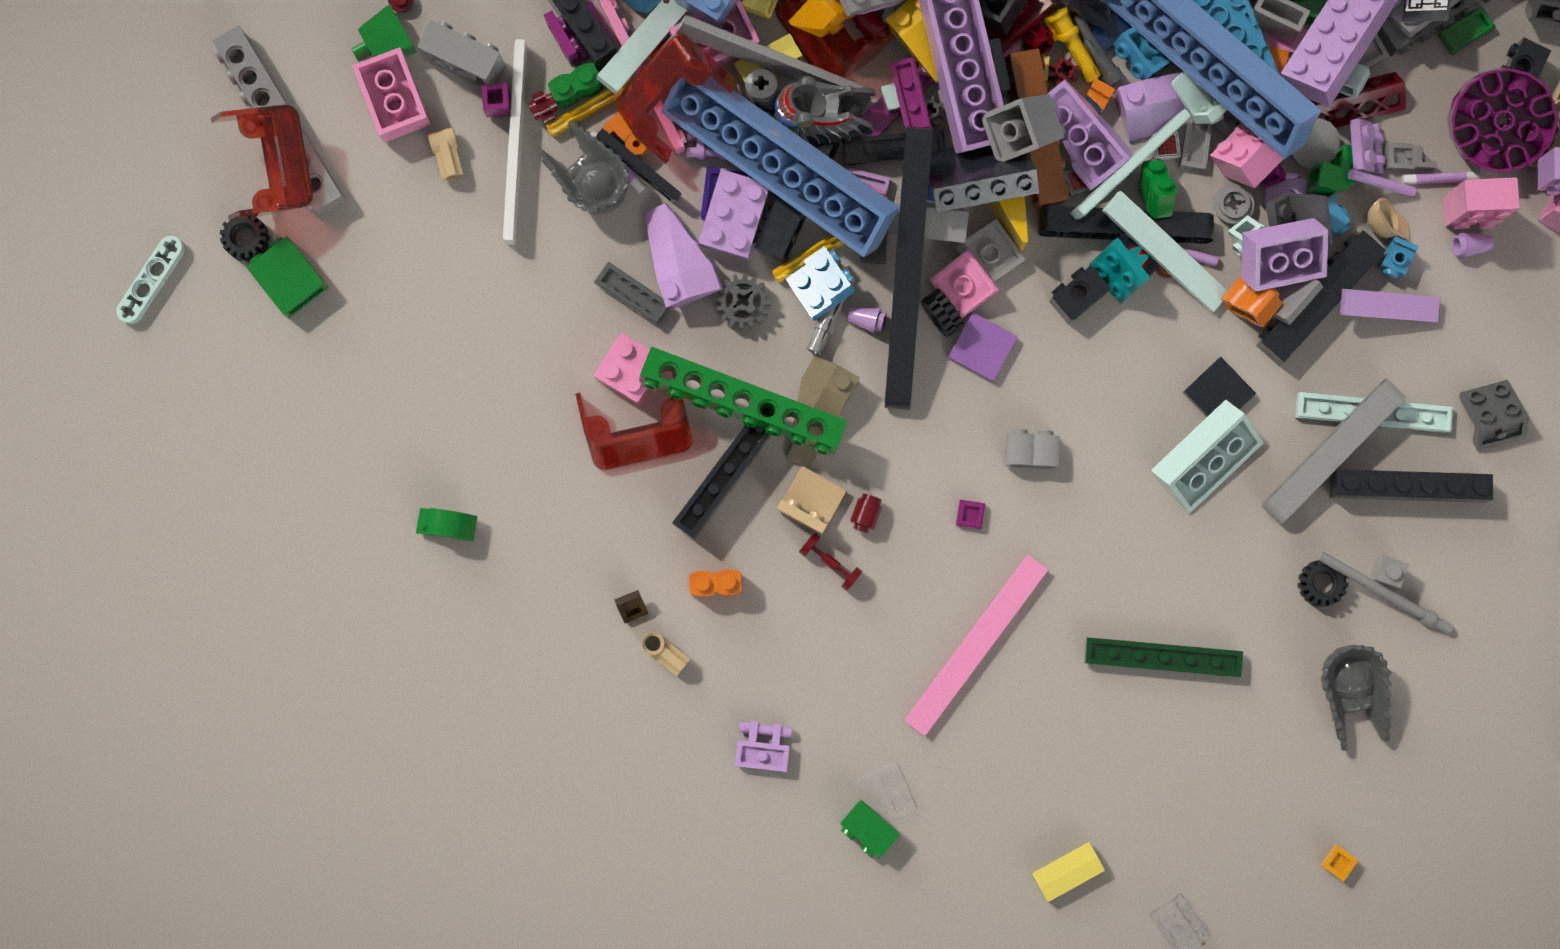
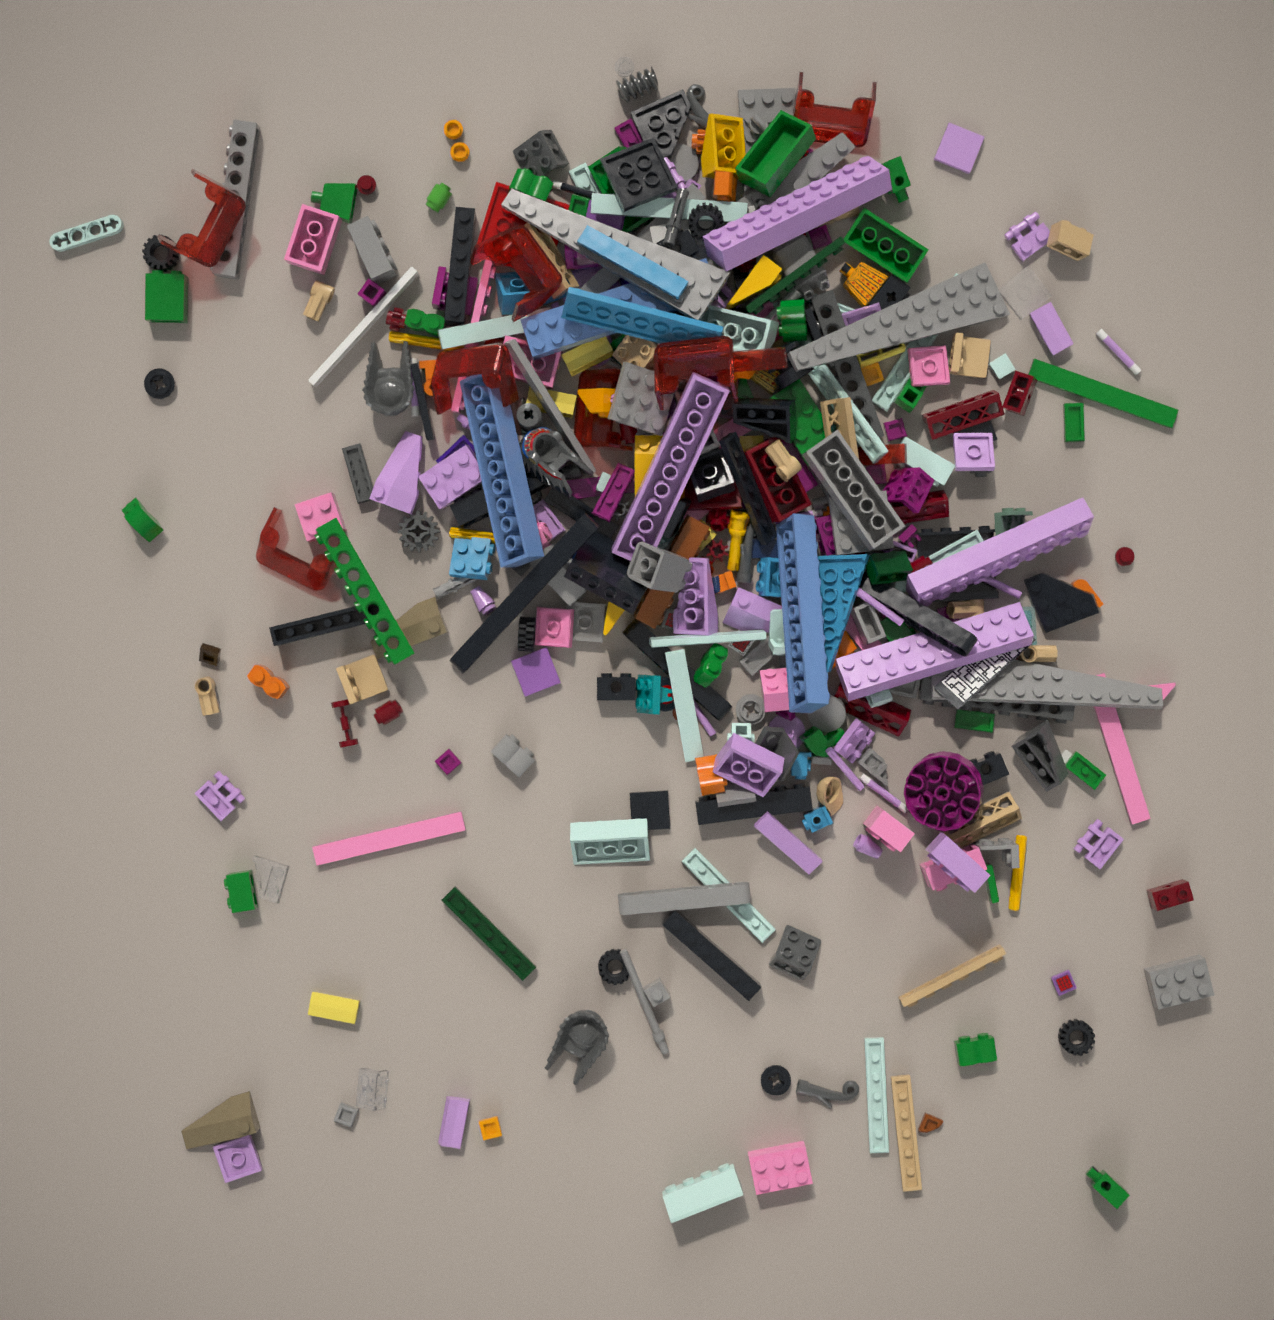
camera: 40 degrees right, 5 degrees up
(340, 365) = (157, 375): none -> black gear
(1295, 889) = (453, 1122): none -> lavender piece
(1350, 193) = (820, 760): none -> light grey tile

